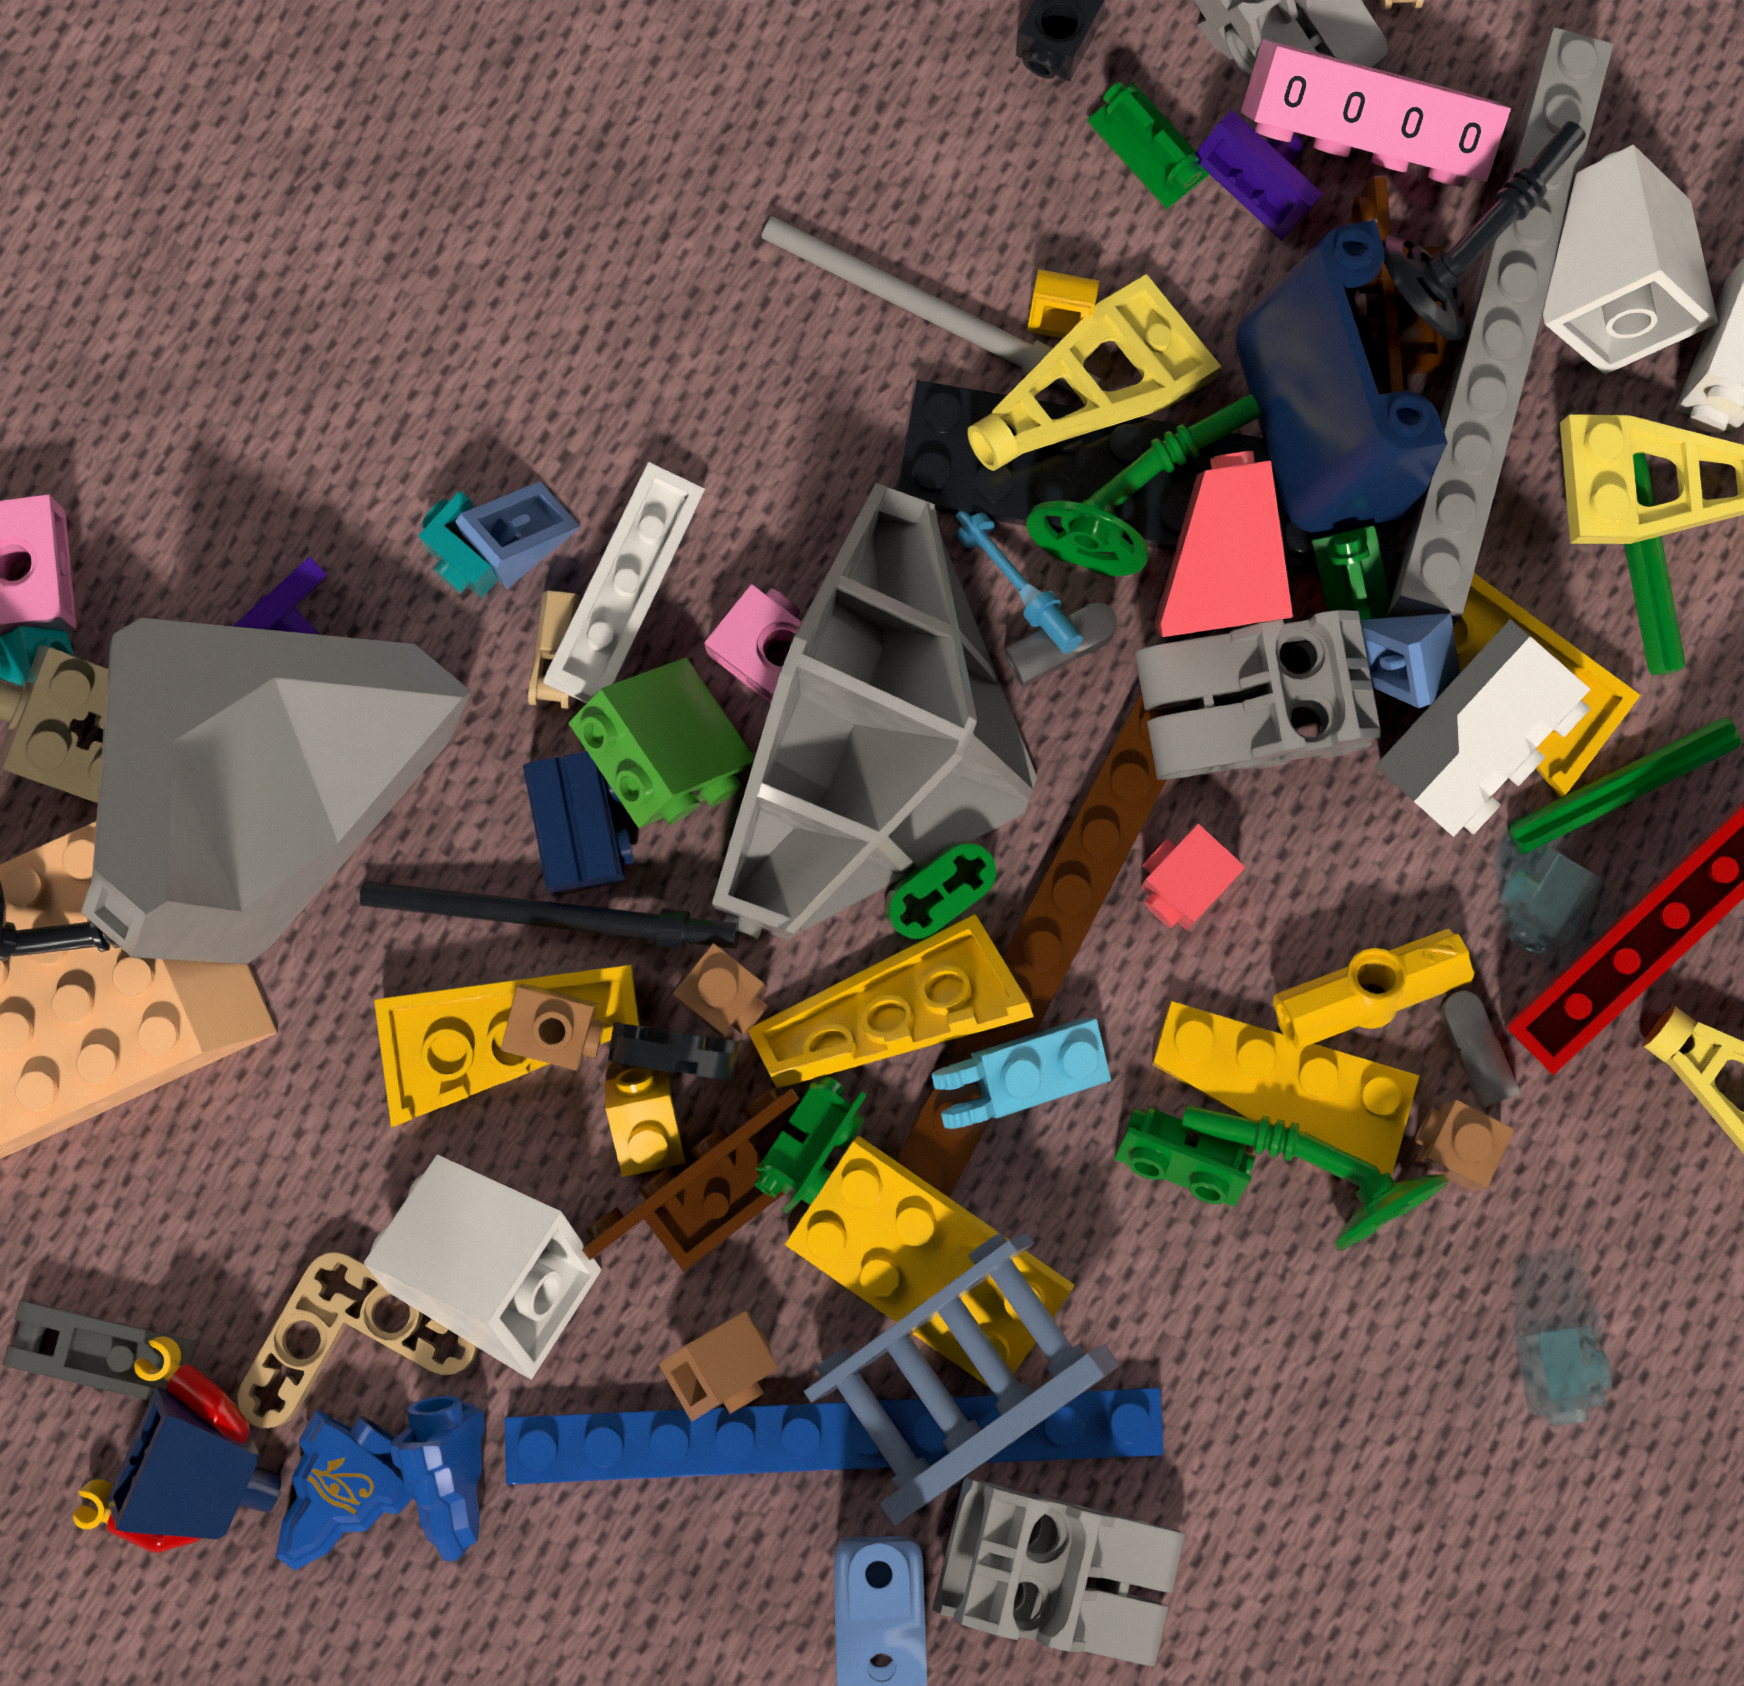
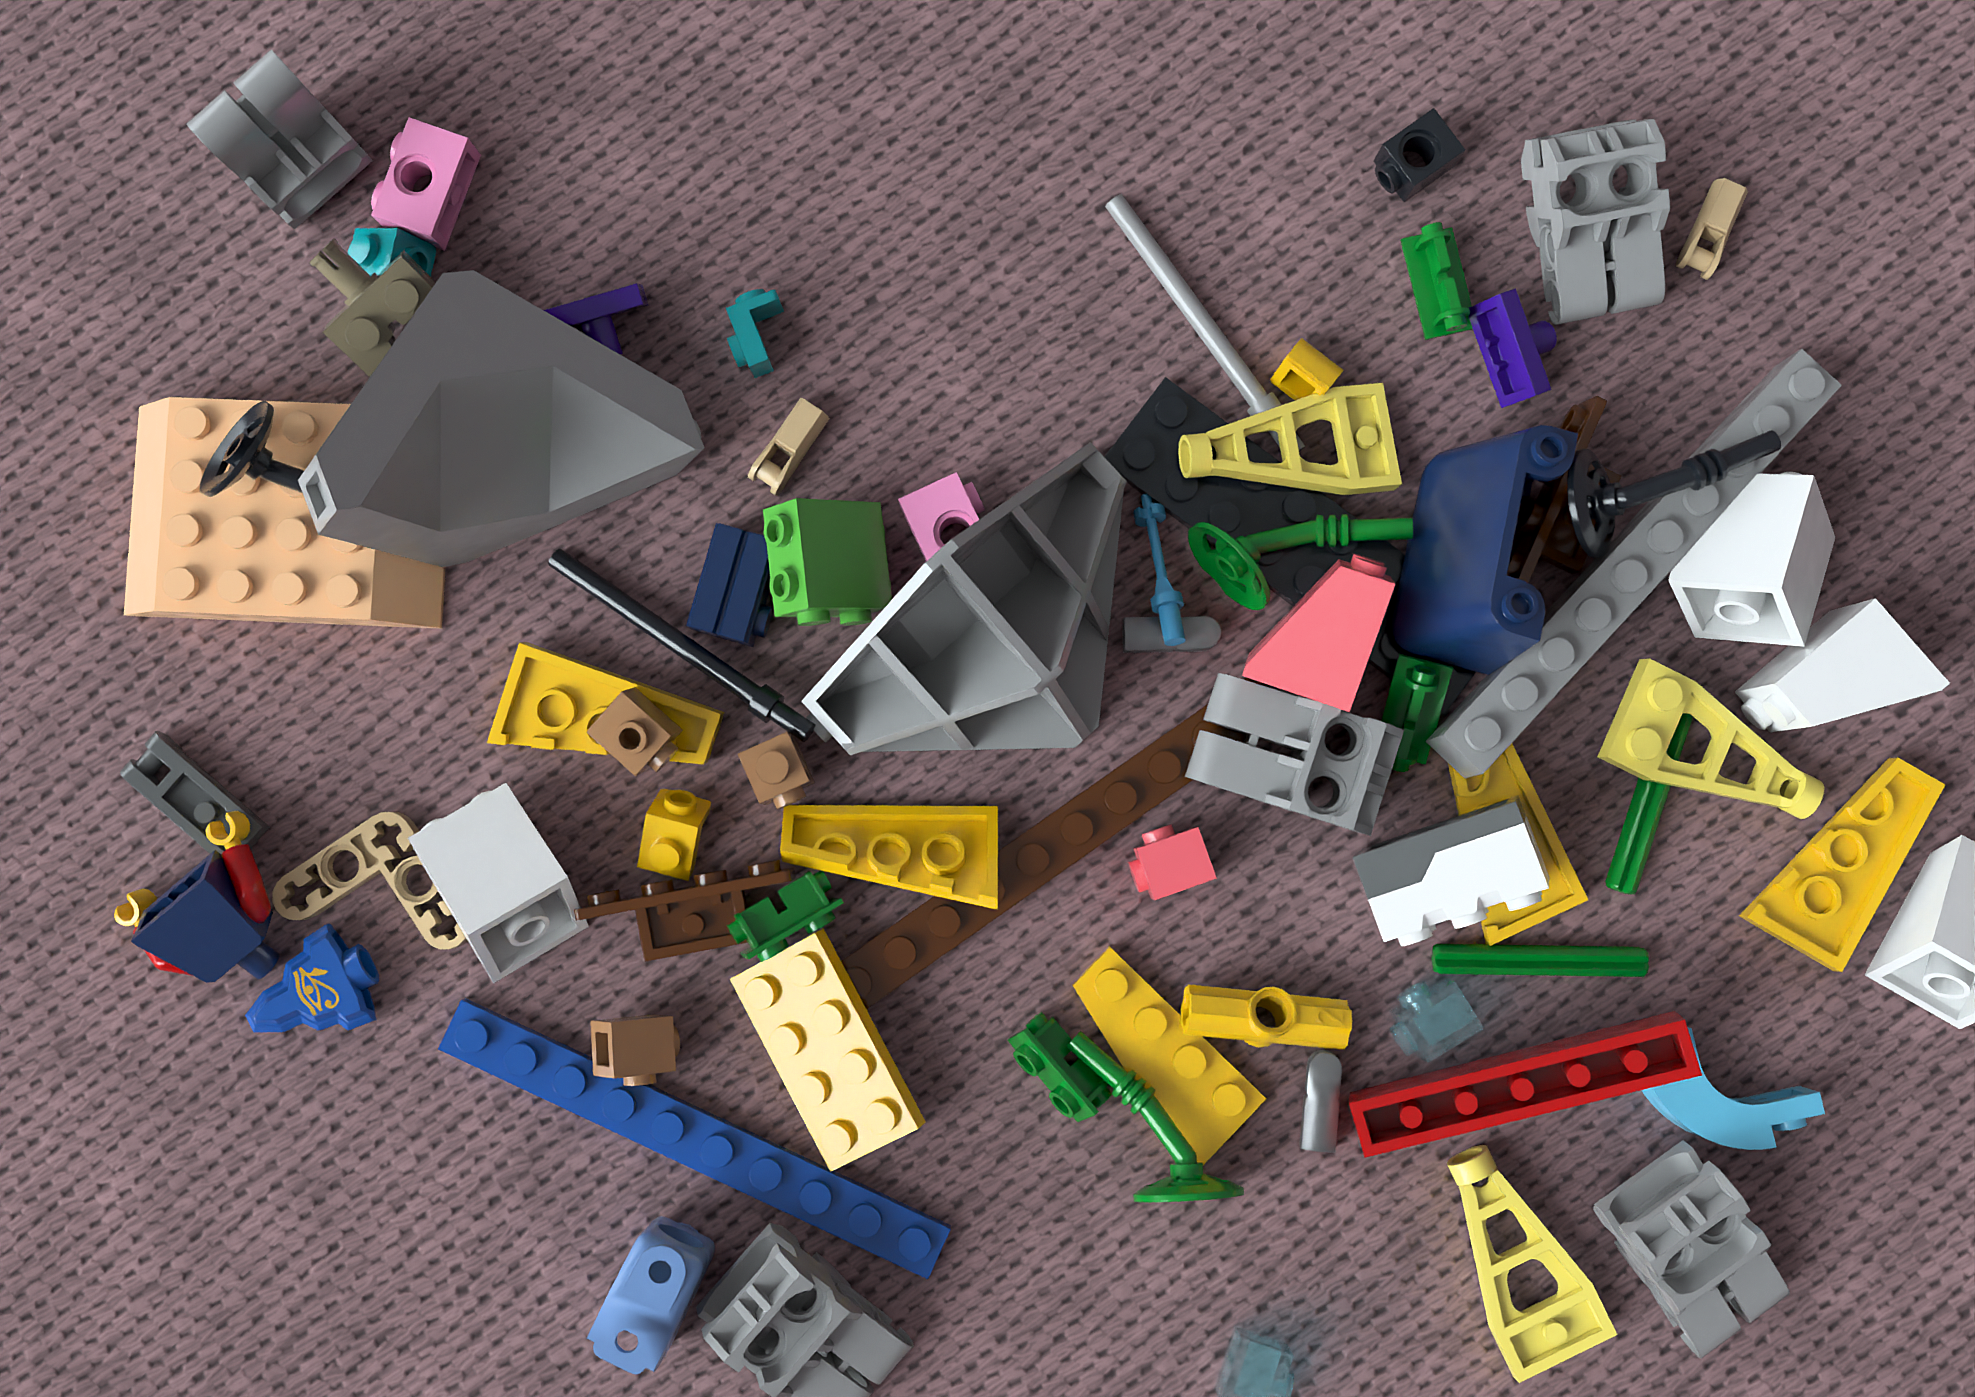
camera: 30 degrees right, 5 degrees up
(442, 1470) = (394, 1013): blue rock -> none
(517, 530) = (804, 340): medium blue slope -> none
(624, 584) = (862, 423): white plate -> none
(674, 1051) = (714, 794): black plate -> none
(949, 901) = (982, 787): green beam -> none
(1018, 1405) = (833, 1198): sand blue fence -> none
(1026, 1072) = (971, 945): medium azure hinge -> none
(1373, 112) = (1624, 345): bright pink brick -> none
(1411, 656) = (1426, 786): medium blue slope -> none
(1462, 1144) = (1270, 1169): medium nougat brick -> none

